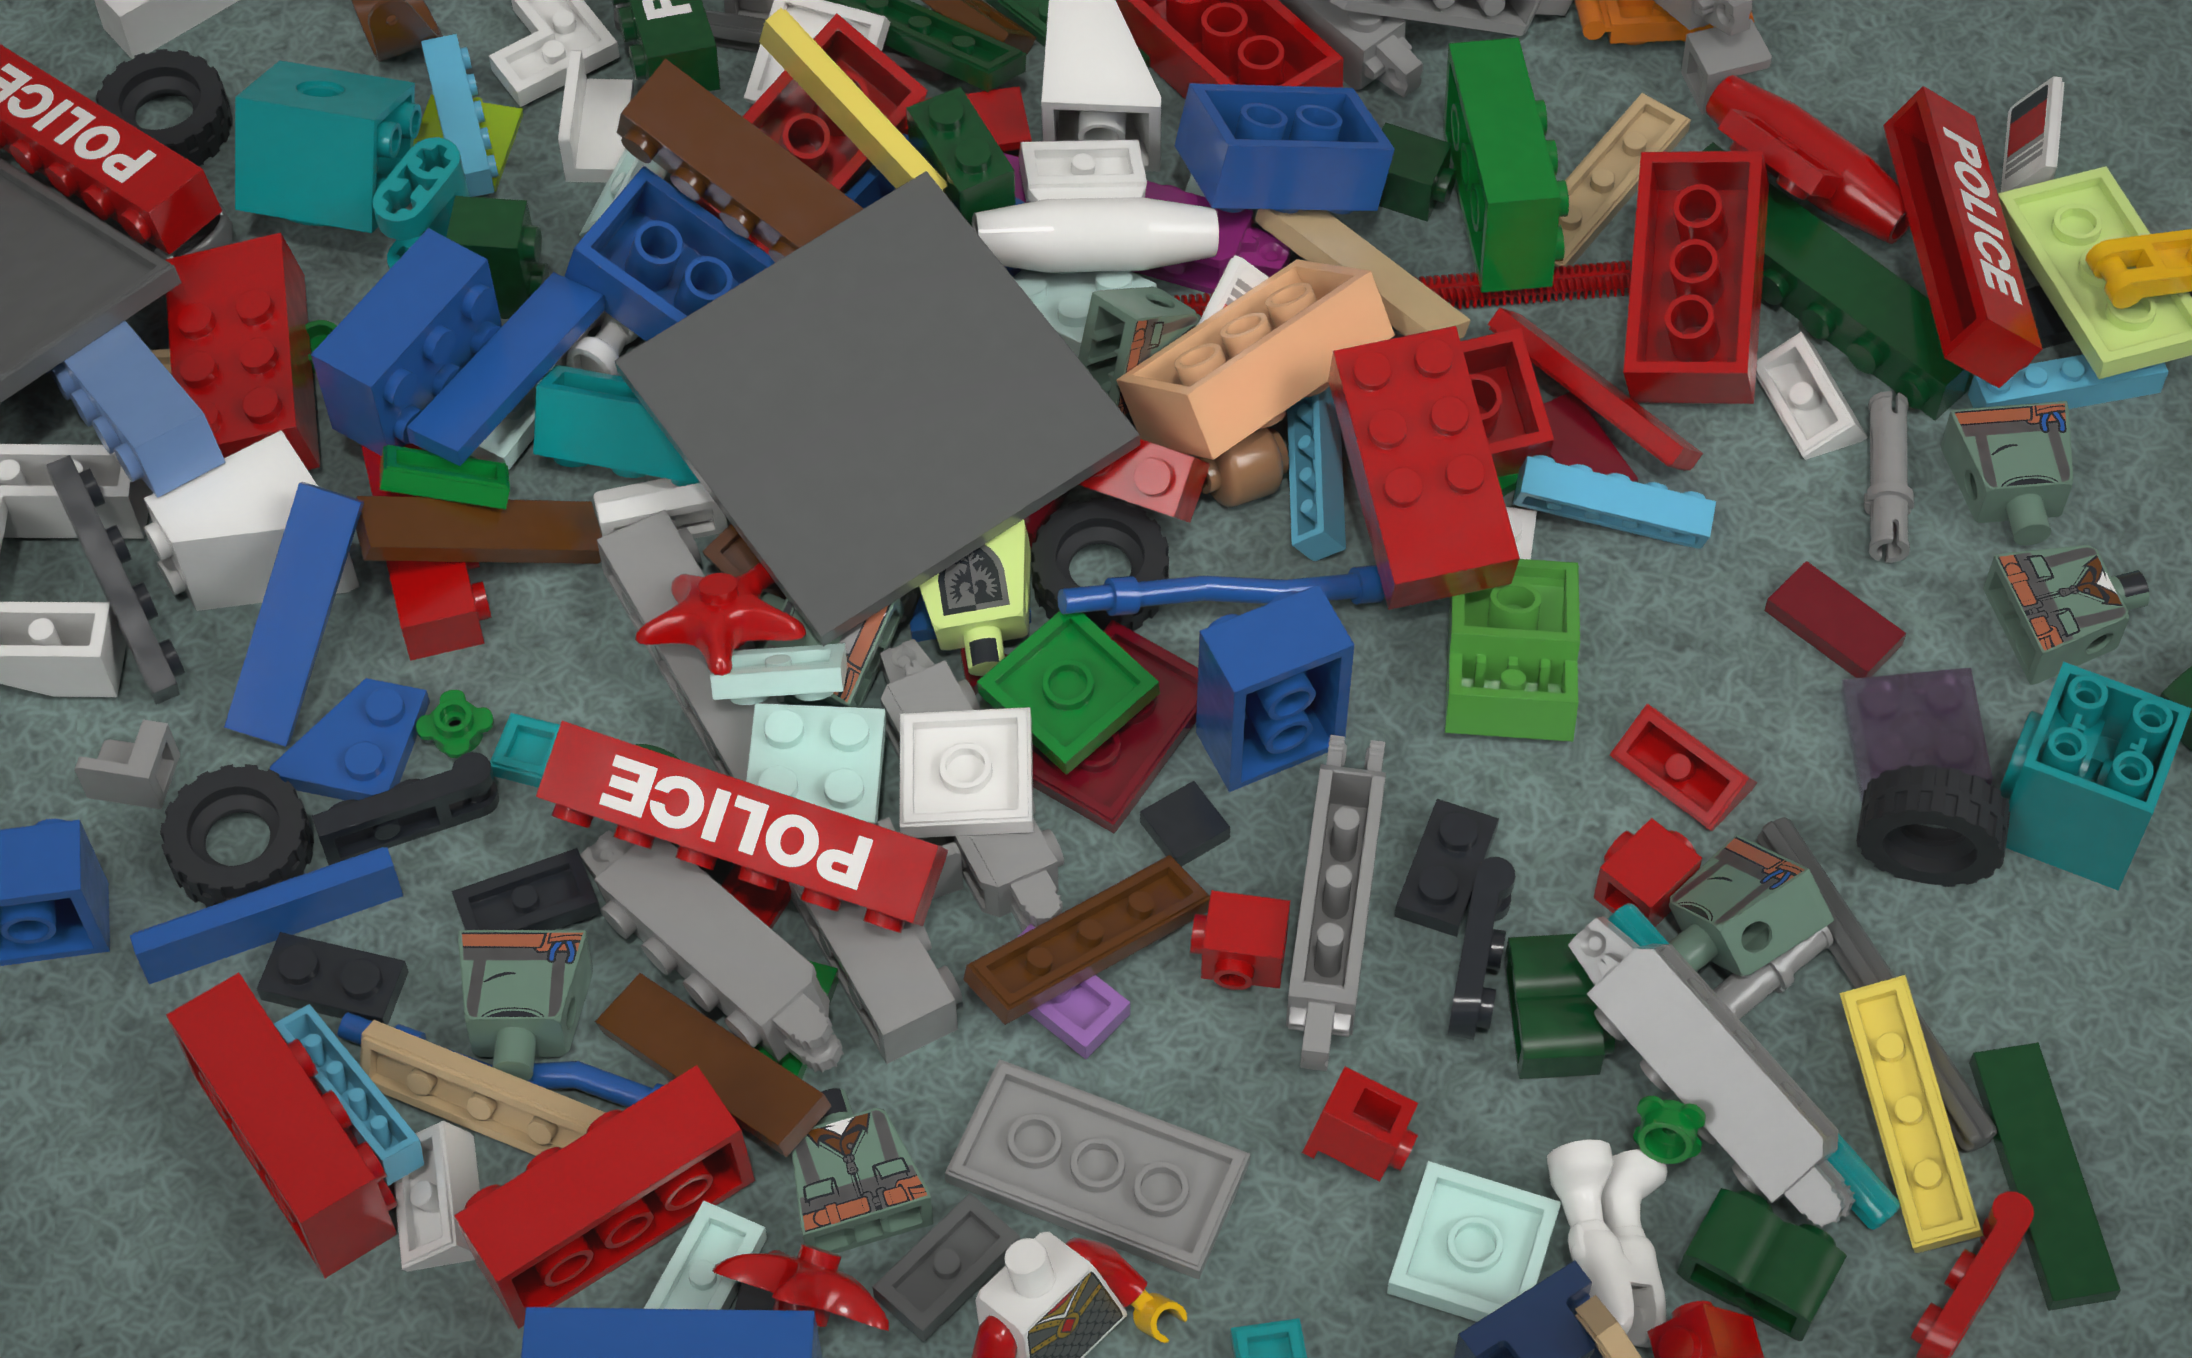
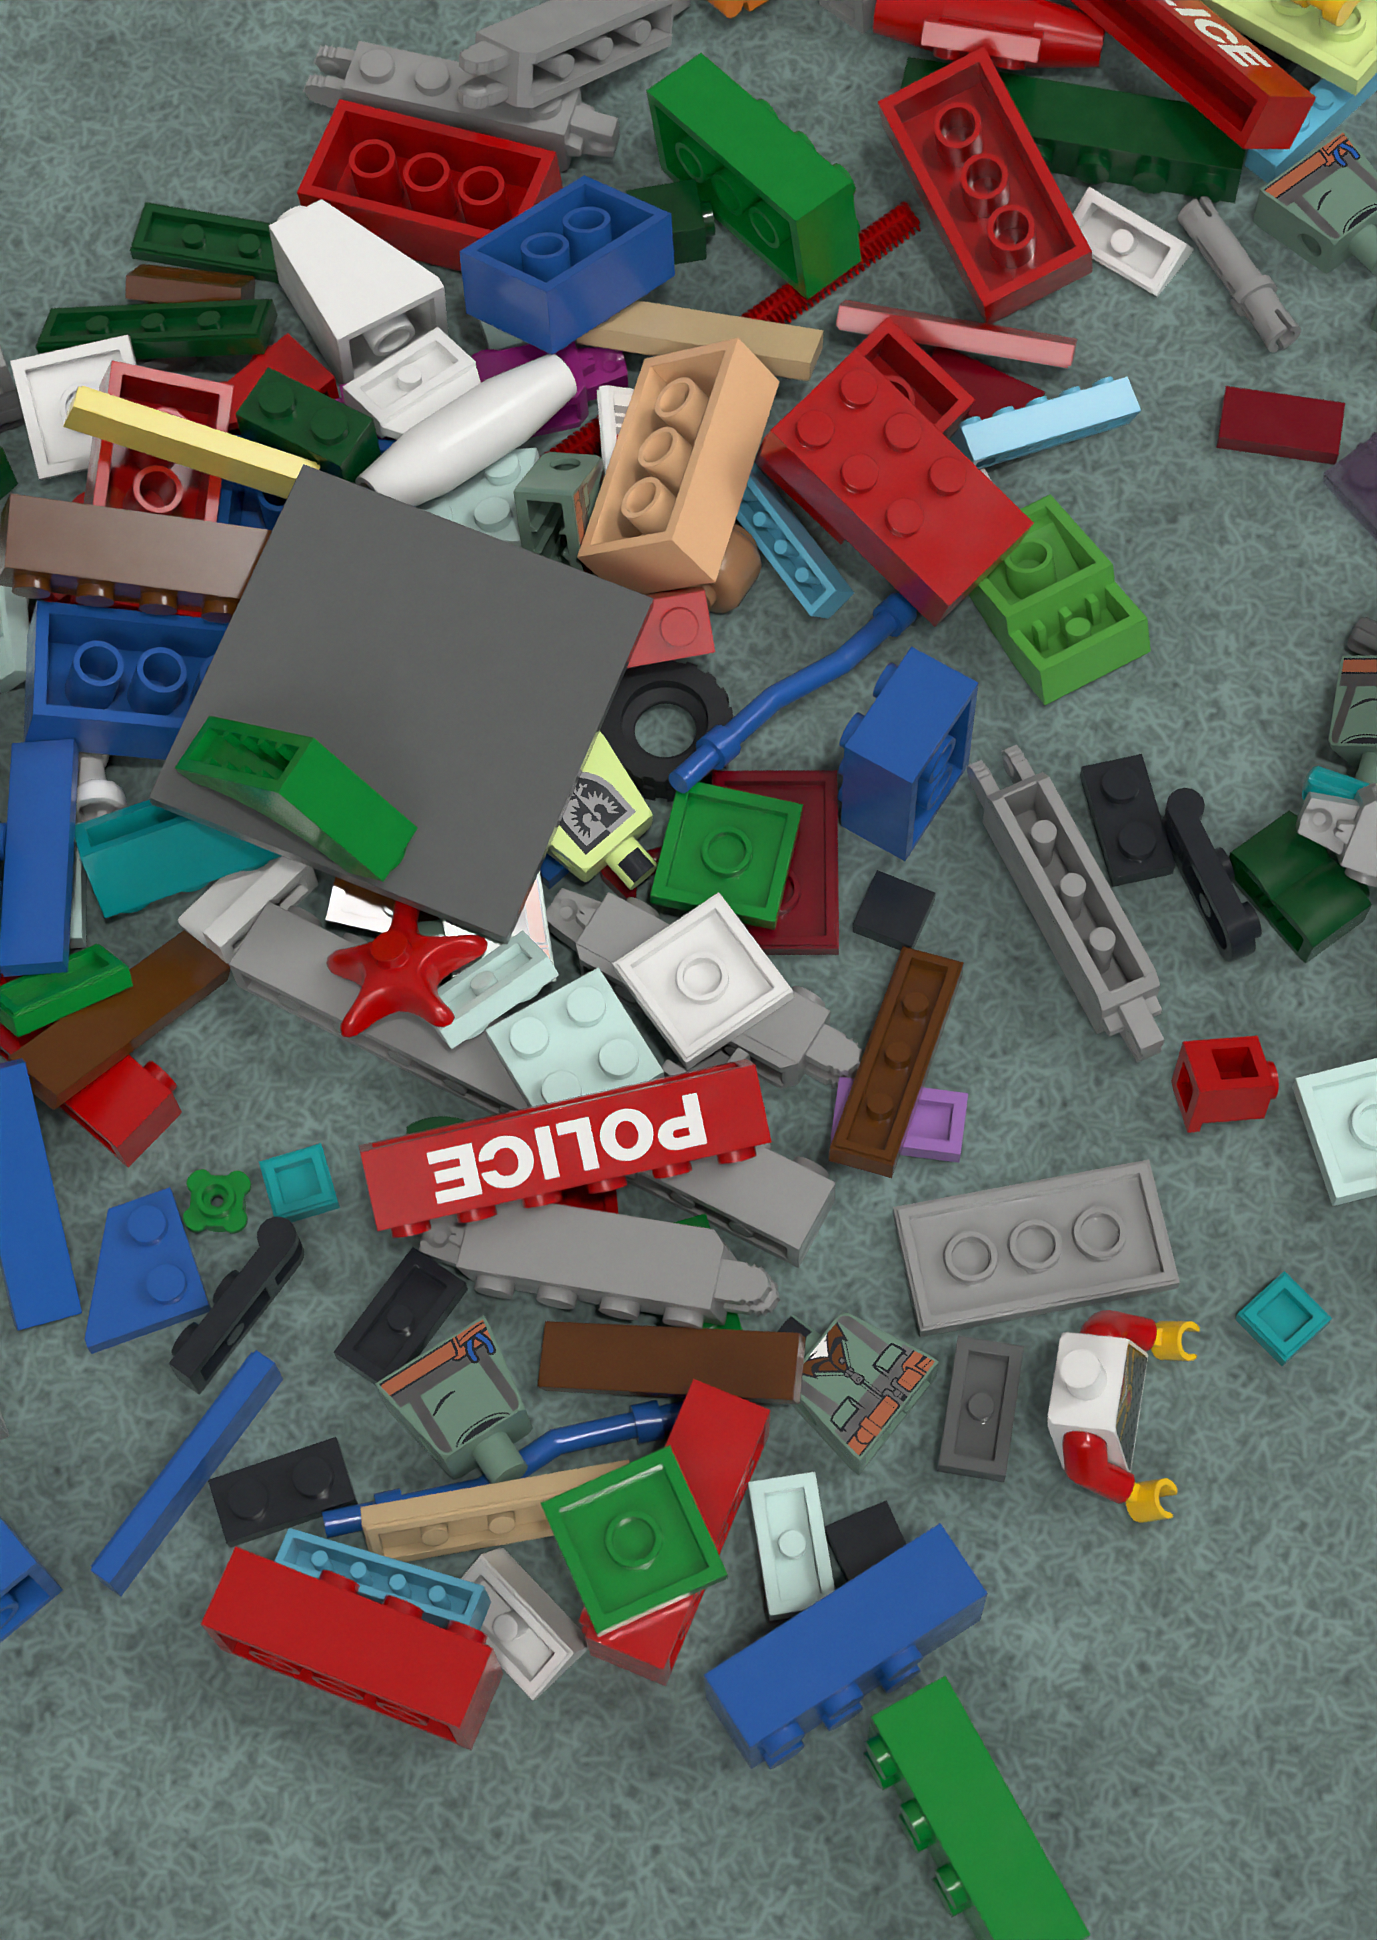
camera: 30 degrees left, 10 degrees up
(227, 793) = (75, 1381): black tyre -> none
(544, 1157) = (634, 1541): none -> green plate
(728, 422) = (302, 790): none -> green arch
(806, 1284) = (897, 1501): red animal -> none
(1242, 940) = (1018, 984): red brick -> none
(1611, 171) = (833, 101): tan tile -> none
(1646, 870) = (1291, 730): red brick -> none
(1682, 767) = (1249, 622): red slope -> none

